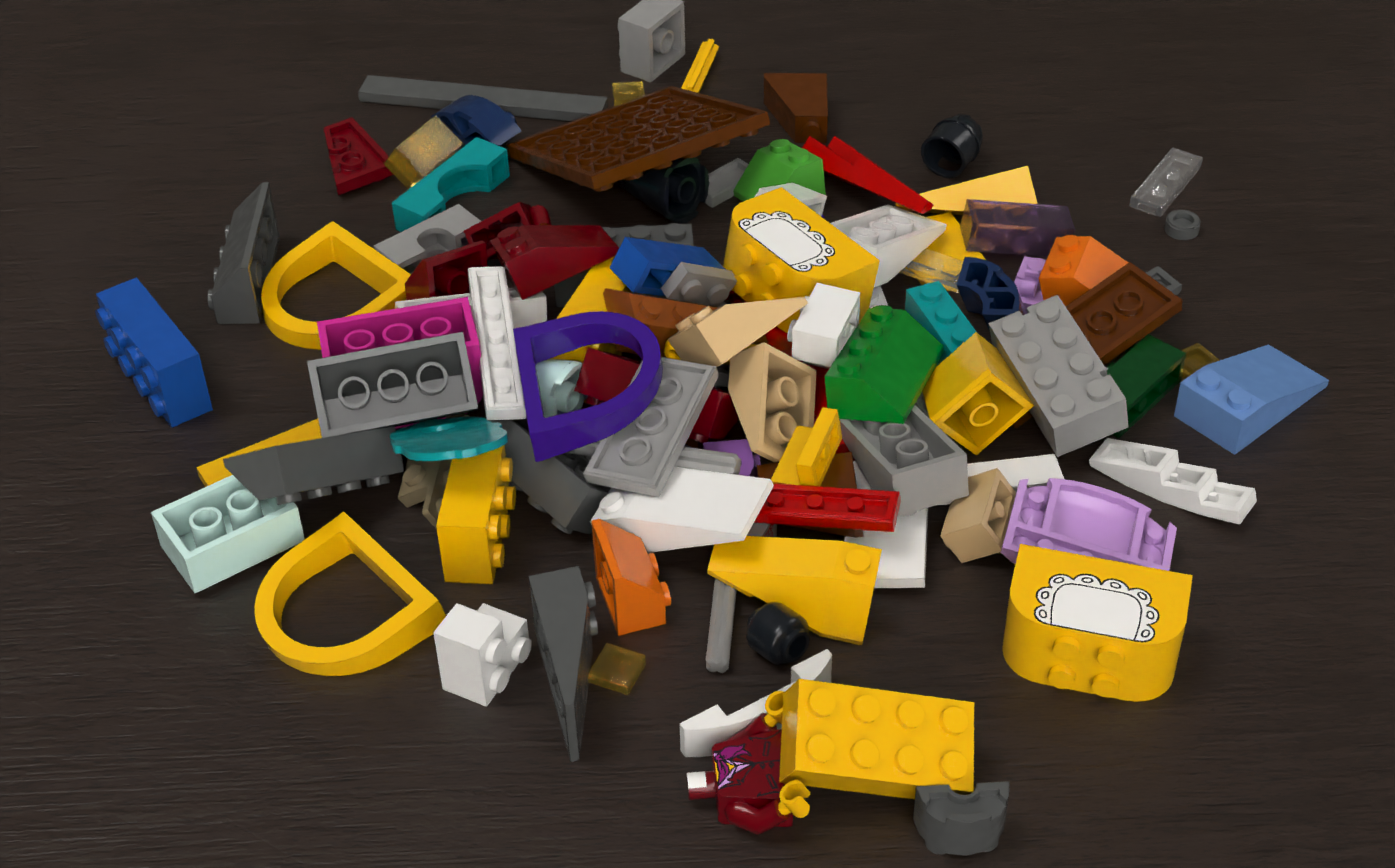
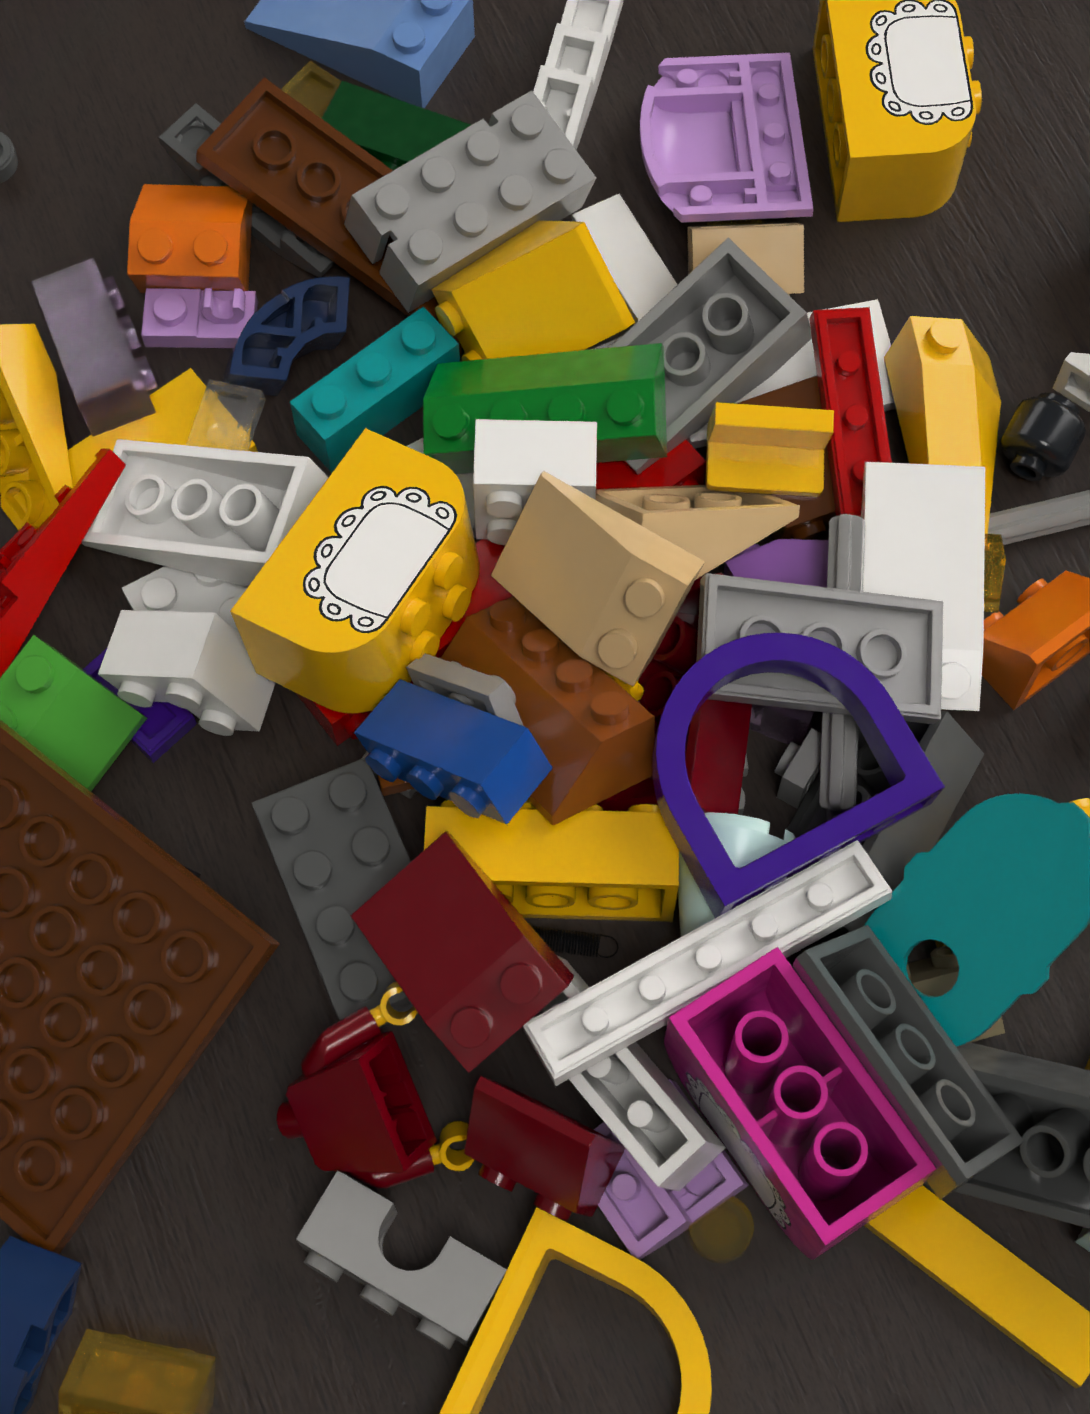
camera: 110 degrees left, 25 degrees up
(473, 168) = (136, 1282): teal arch -> none
(683, 558) = (993, 571): none -> clear yellow tile

